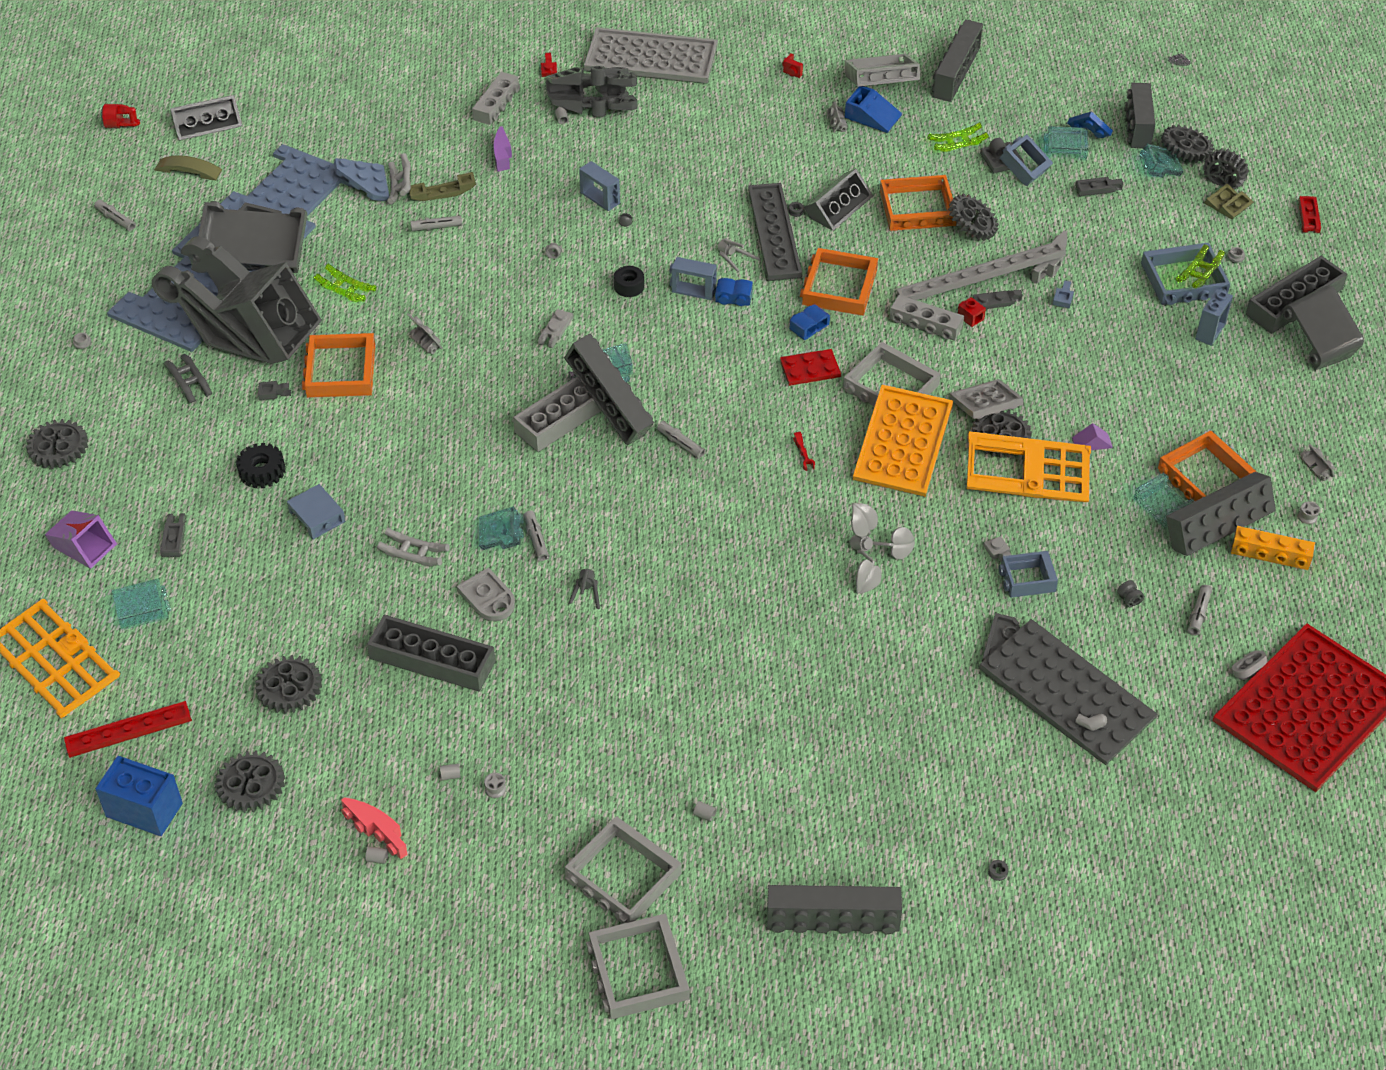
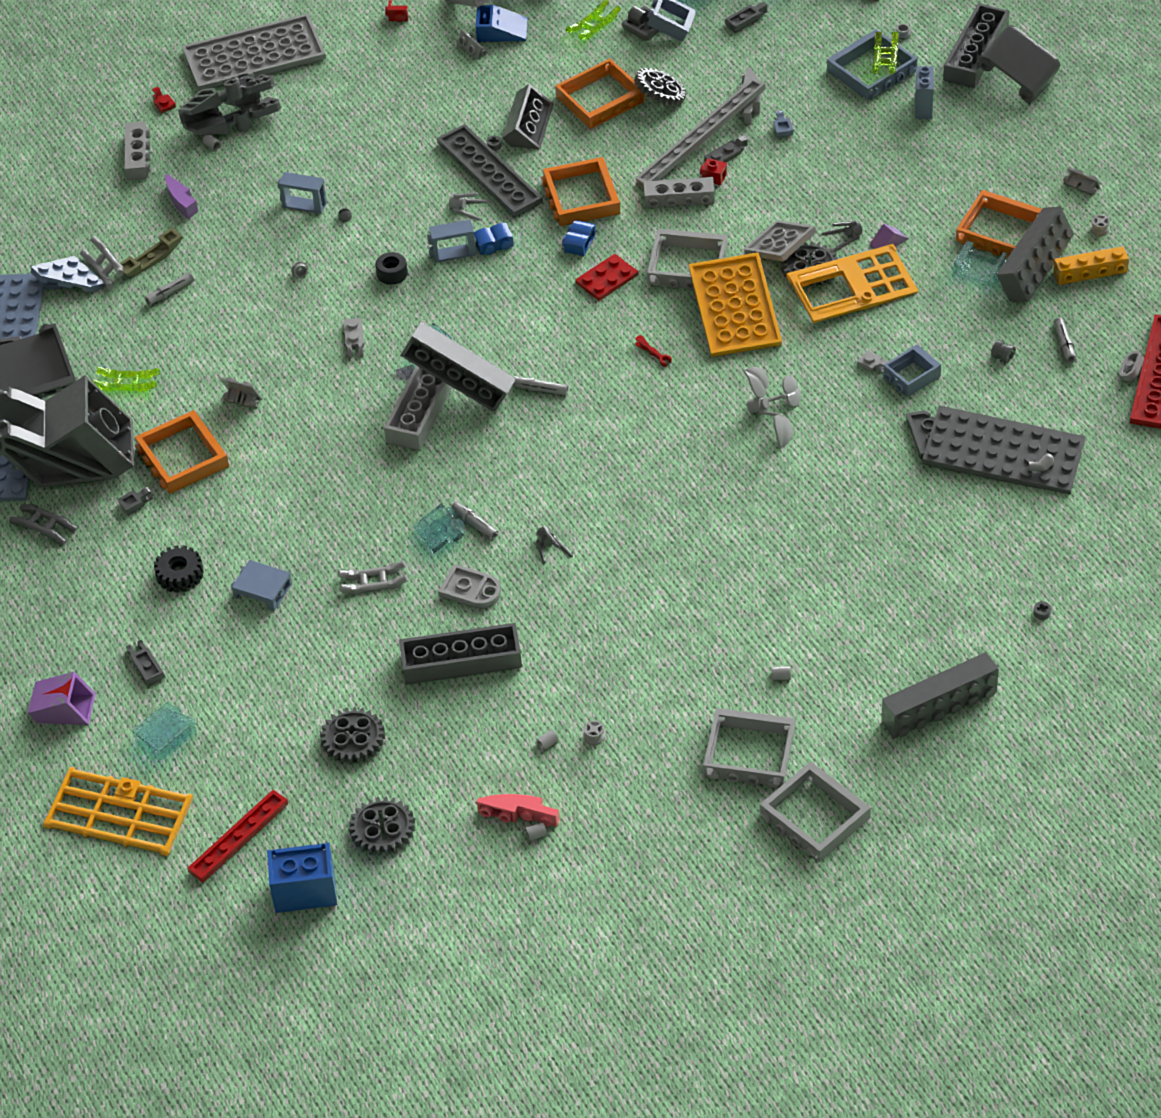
camera: 25 degrees left, 0 degrees up
(1062, 415) = (851, 229): none -> dark grey plant

